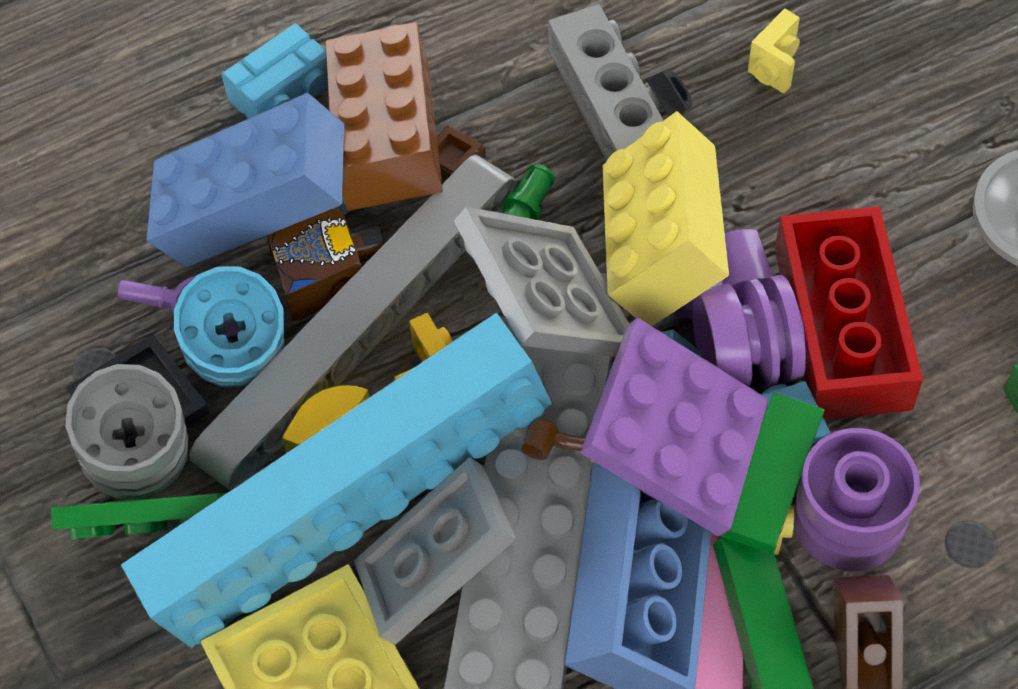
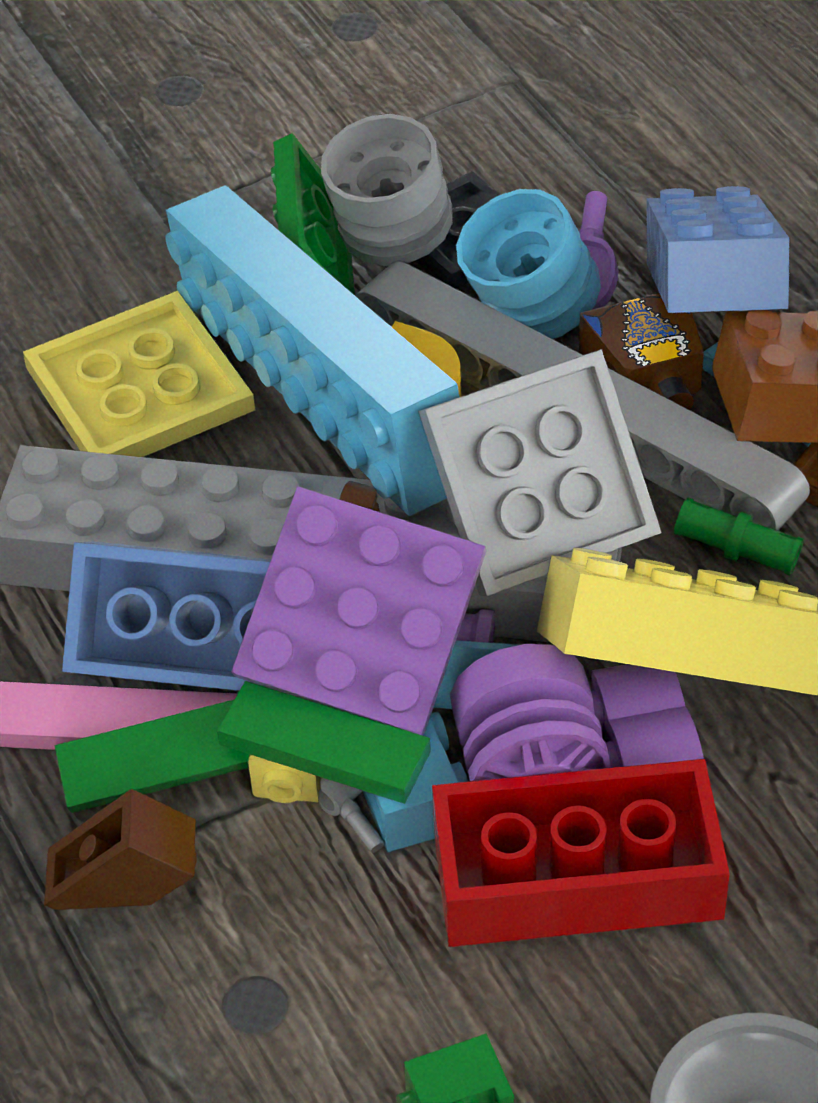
camera: 90 degrees right, 10 degrees down
(433, 551) = (245, 437): light grey plate -> none
(855, 499) = (294, 840): medium lavender wheel -> none

